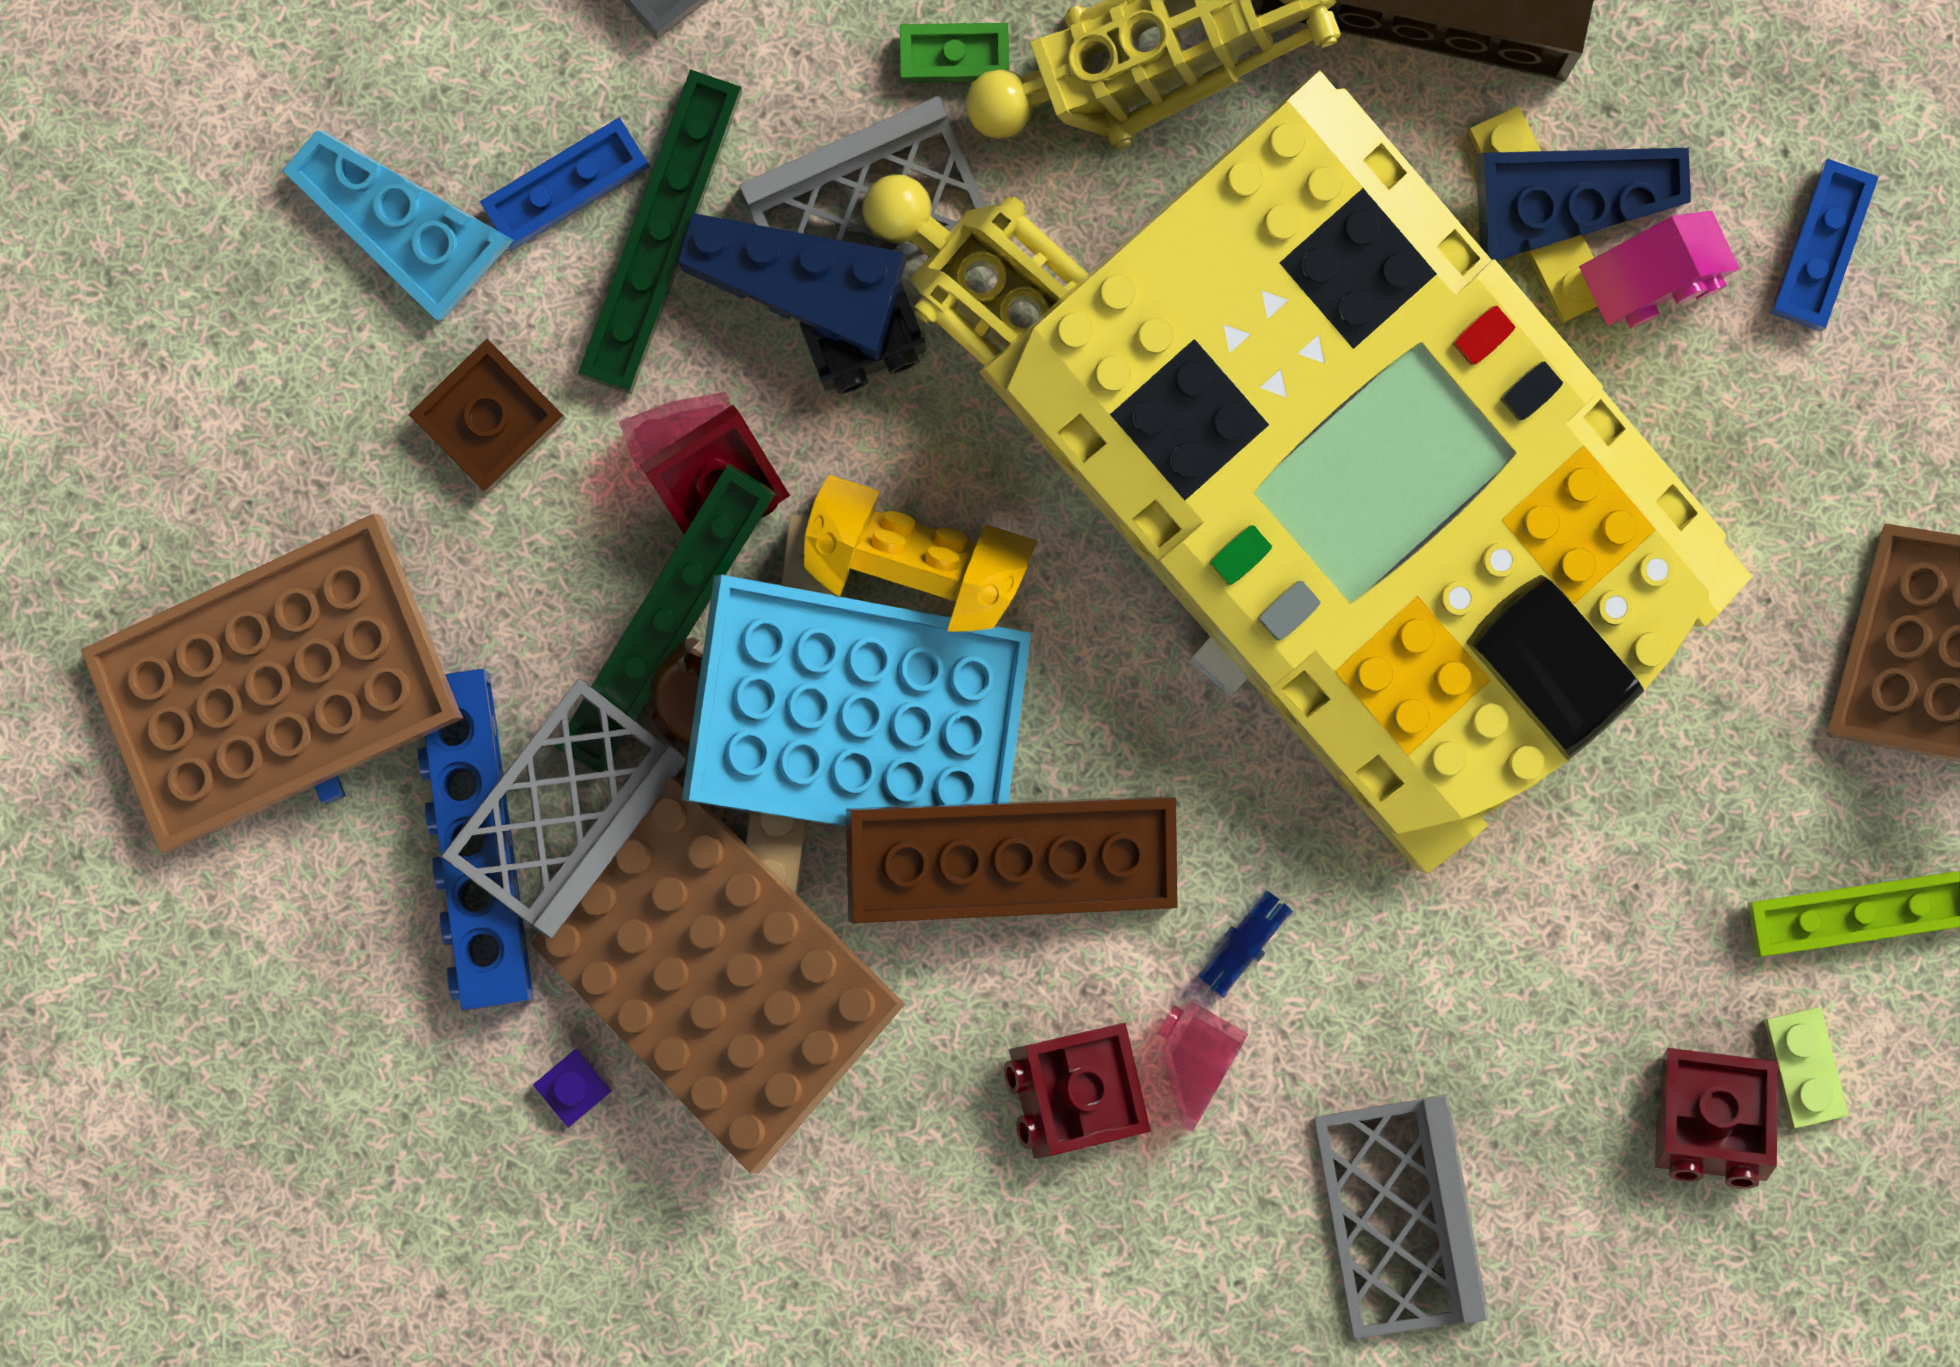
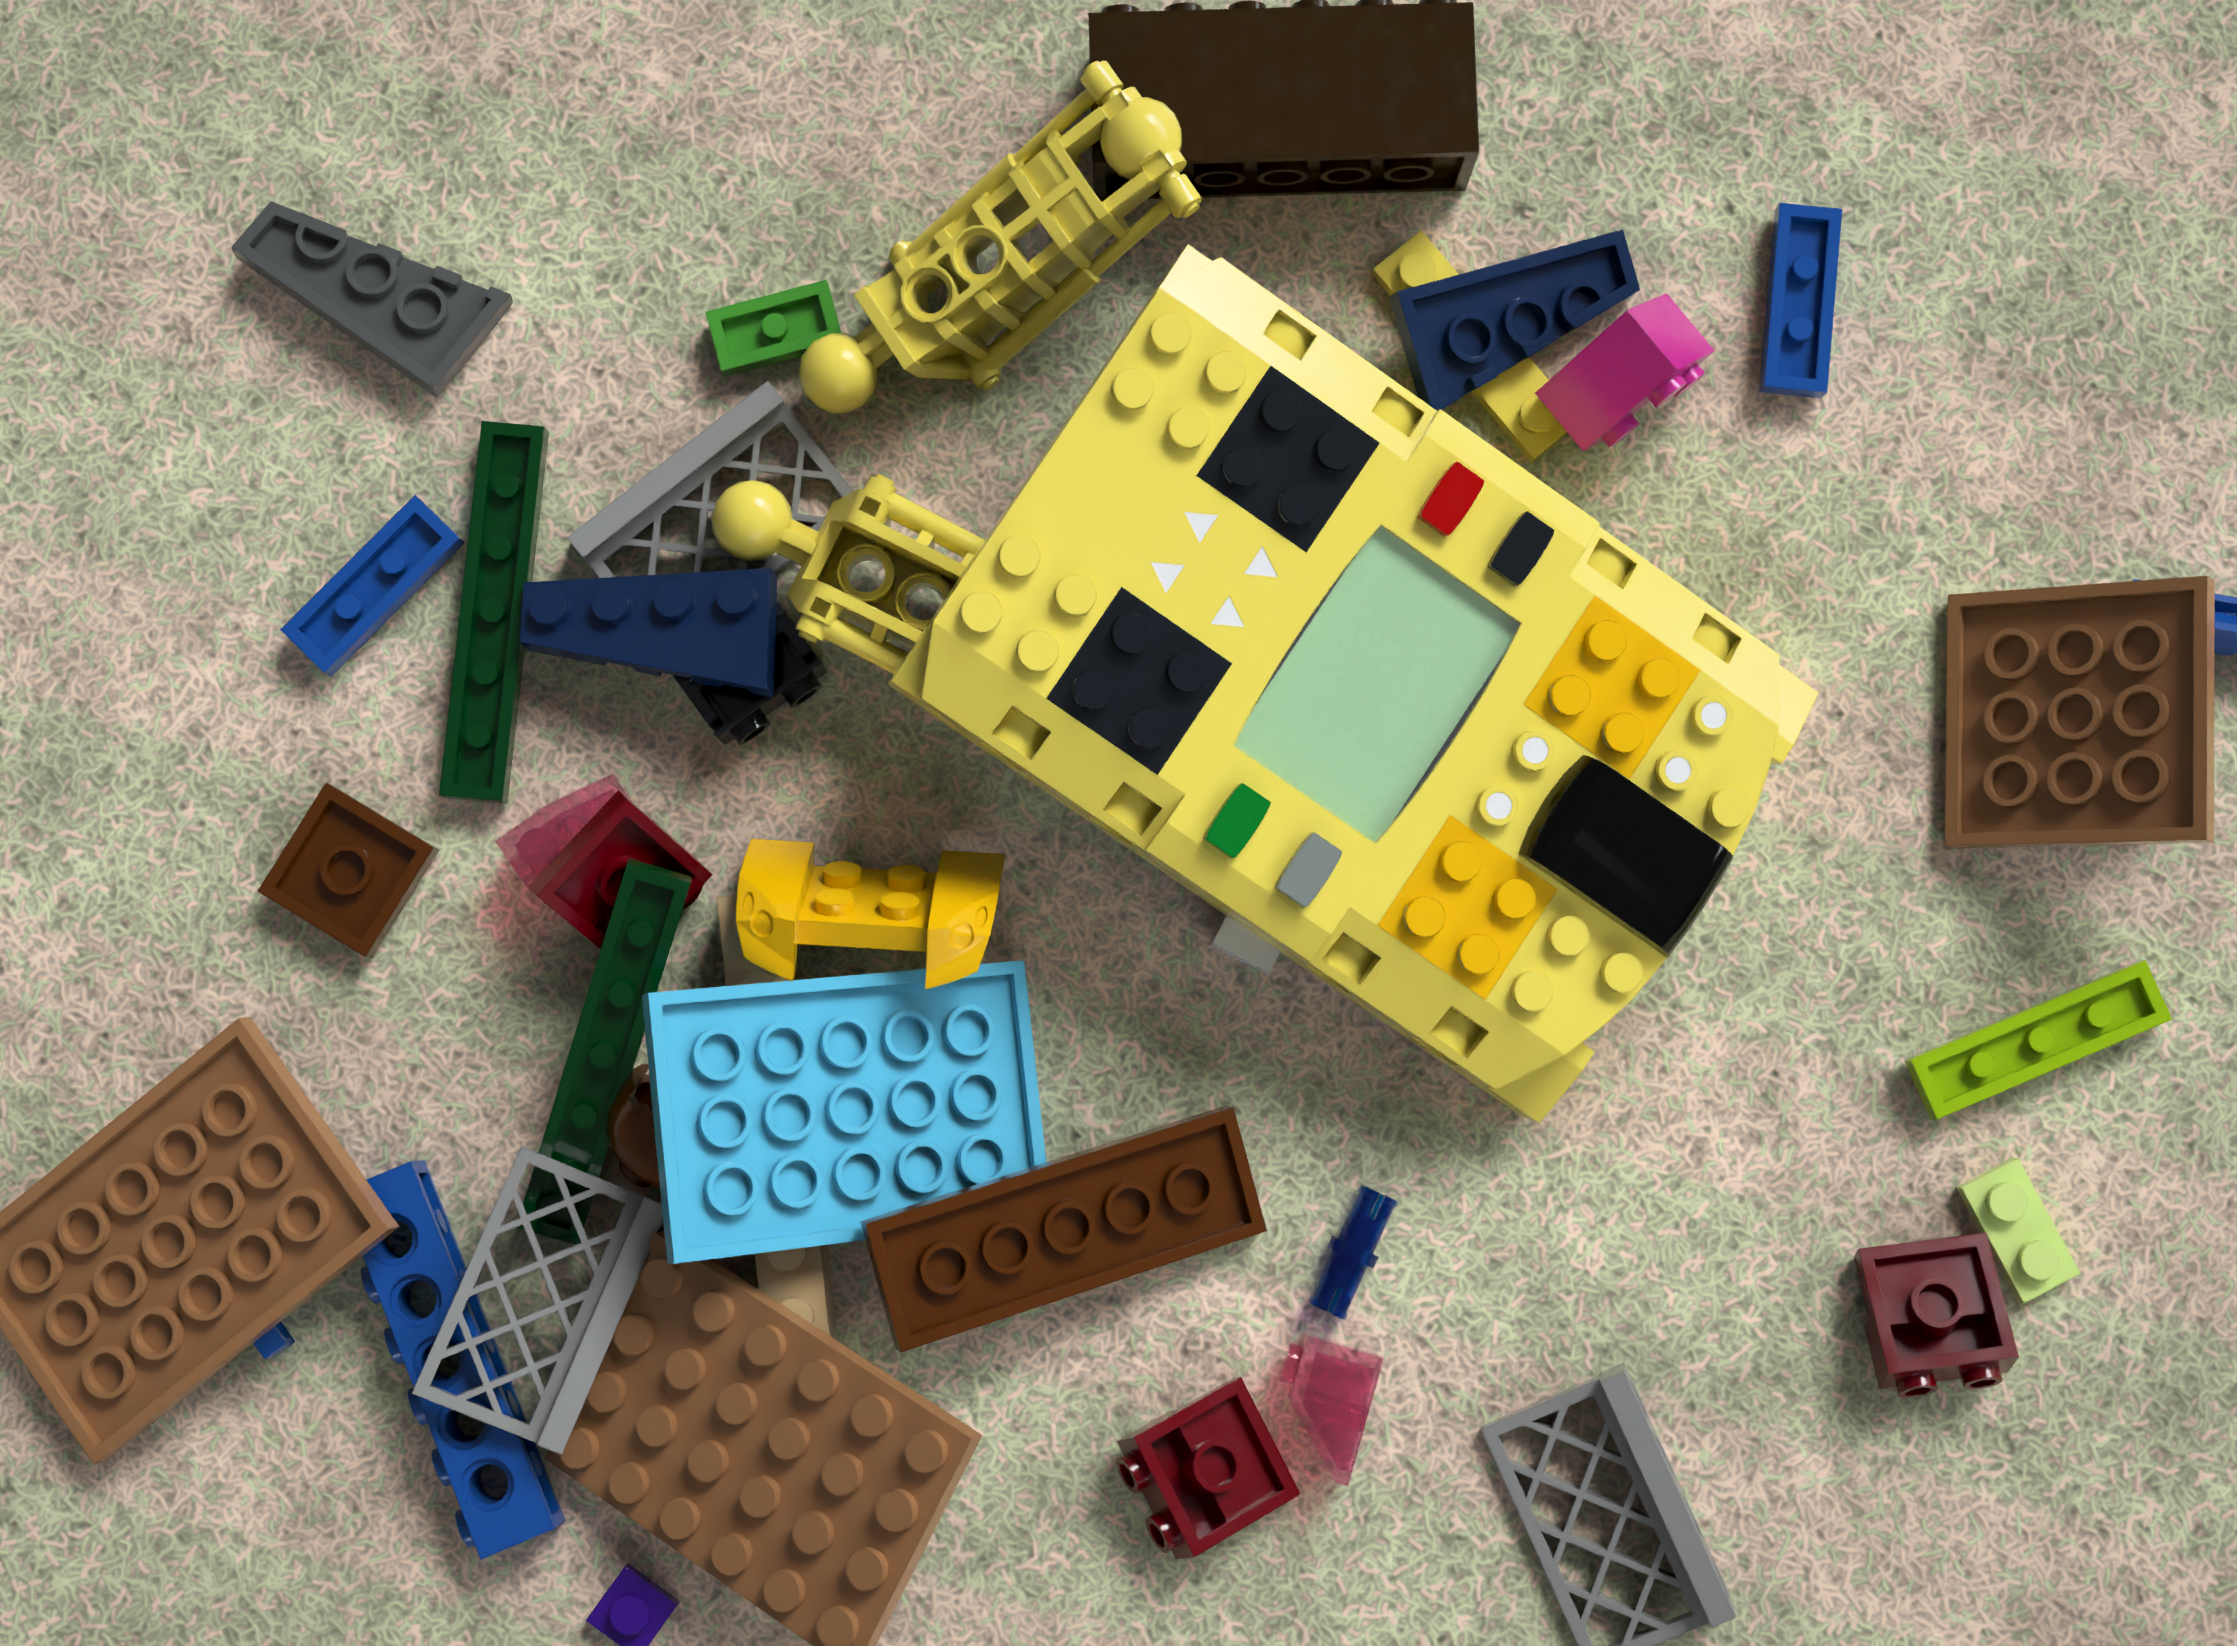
camera: 10 degrees left, 0 degrees up
(405, 228) = (204, 681): medium azure wing -> none

